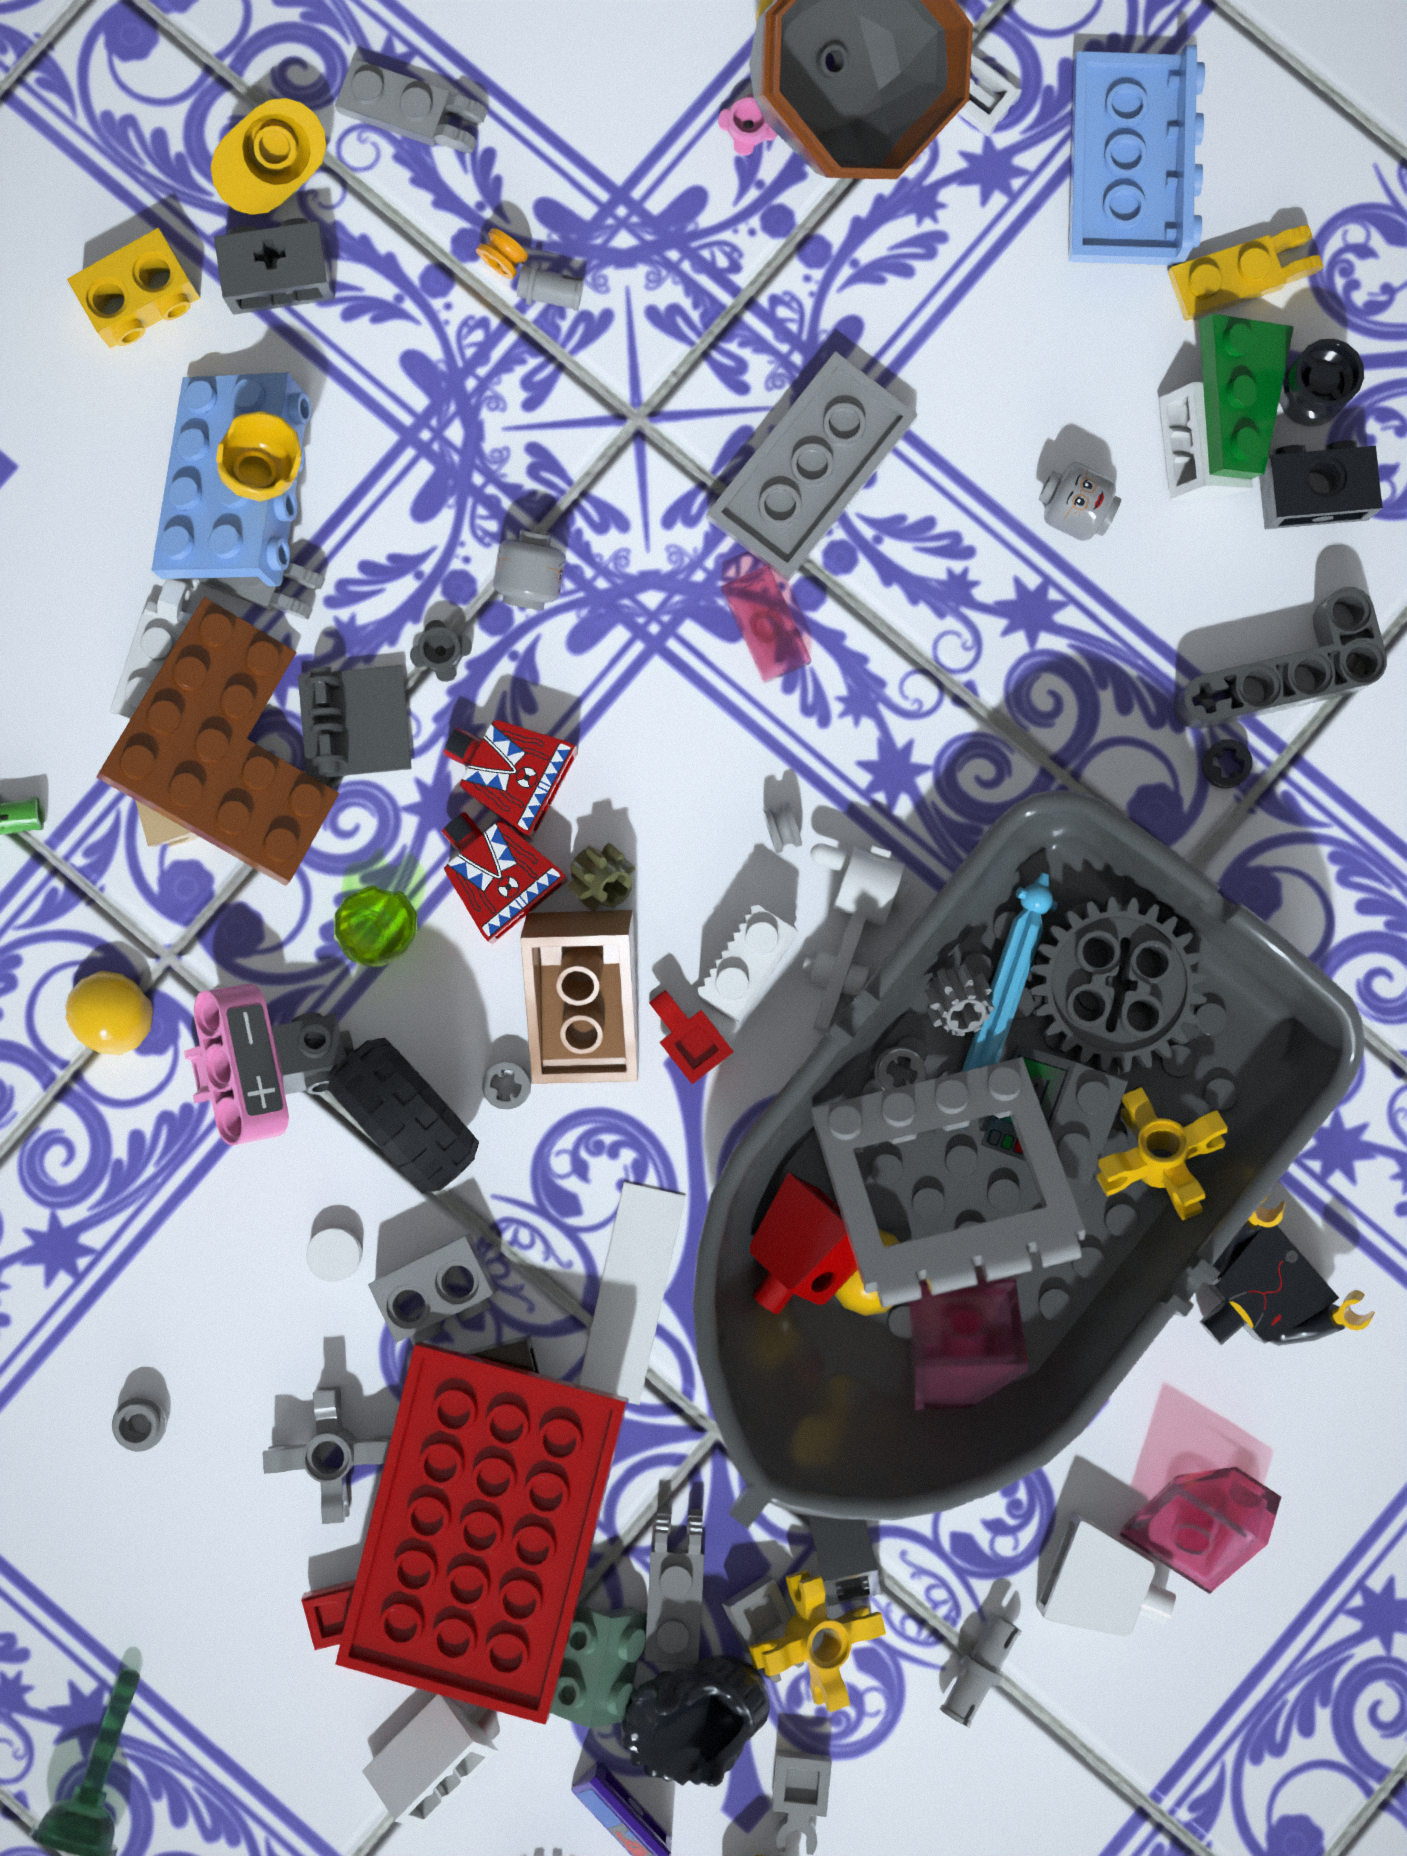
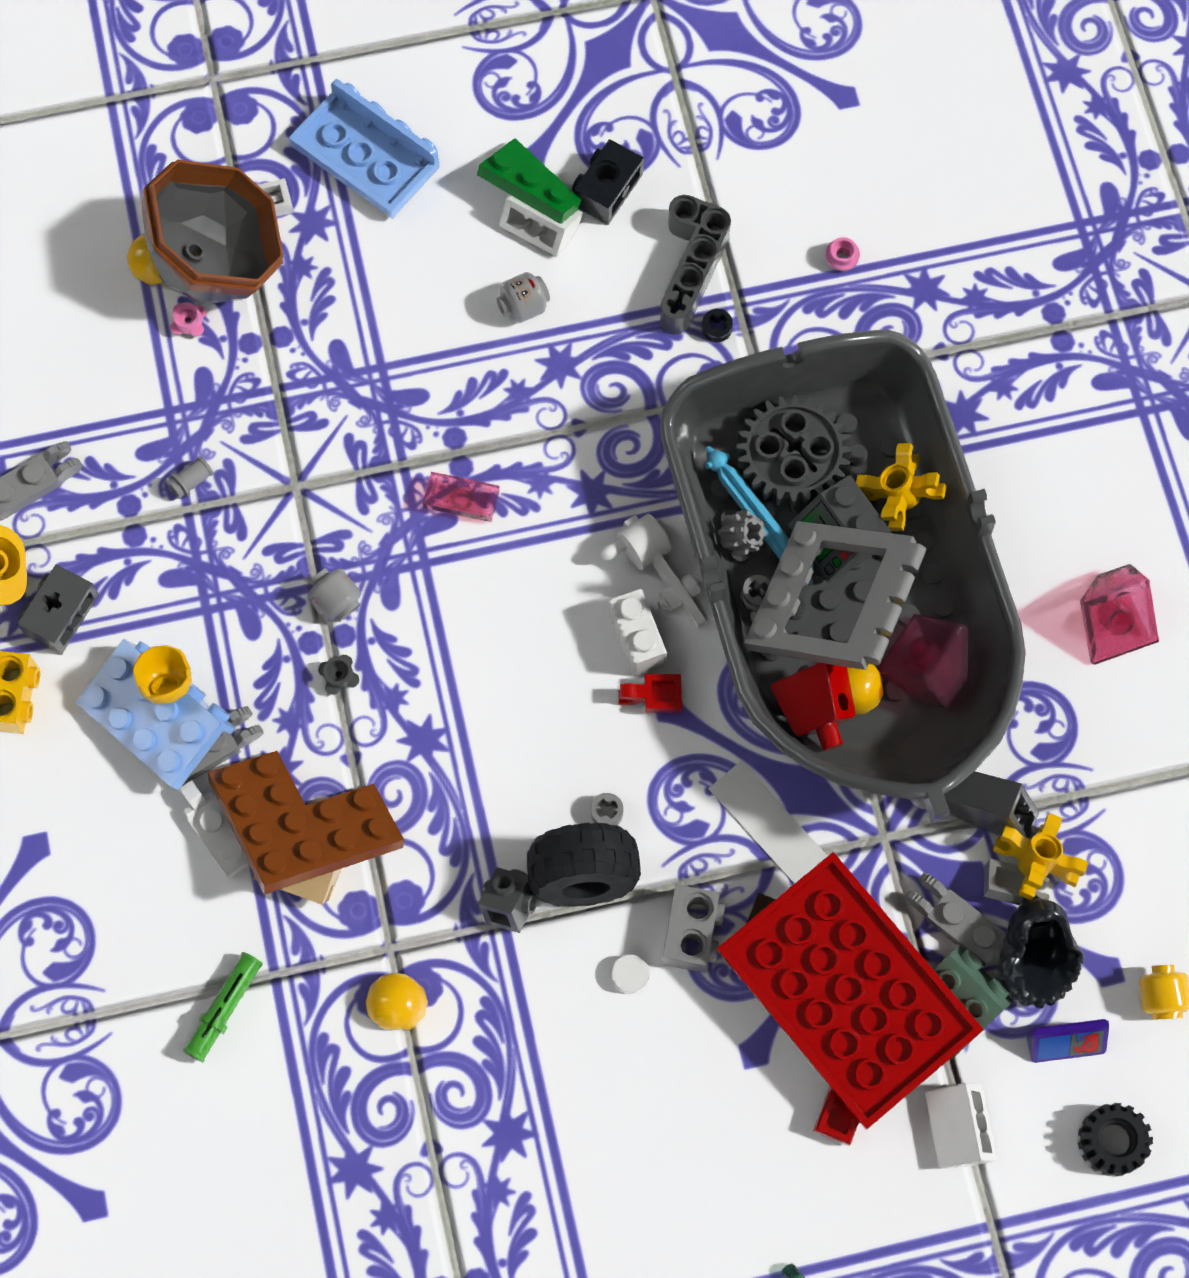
camera: 55 degrees left, 15 degrees down
(124, 1430) = (643, 1143): light grey plate -> none
(238, 1064) = (484, 940): bright pink beam -> none
(306, 1456) = (726, 1043): light grey pin -> none
(354, 721) = (340, 748): dark grey hinge -> none
(375, 926) = (464, 813): clear neon green hair -> none
(498, 875) = (487, 729): torso -> none
(502, 253) = (151, 488): light orange bush -> none
(512, 771) = (437, 681): torso -> none
(581, 996) = (589, 732): medium nougat slope -> none
(601, 877) = (531, 675): olive gear -> none
(782, 826) = (577, 564): light grey bush -> none
(801, 1792) = (1120, 929): light grey plate -> none
(811, 466) = (396, 415): light grey plate -> none
(980, 1670) = (1118, 786): light grey pin -> none
(1101, 1582) = (1111, 687): white torso -> none
(1240, 273) = (466, 144): yellow hinge -> none
(1275, 1289) = (1017, 490): black torso -> none
(1321, 382) = (555, 142): black wheel -> none

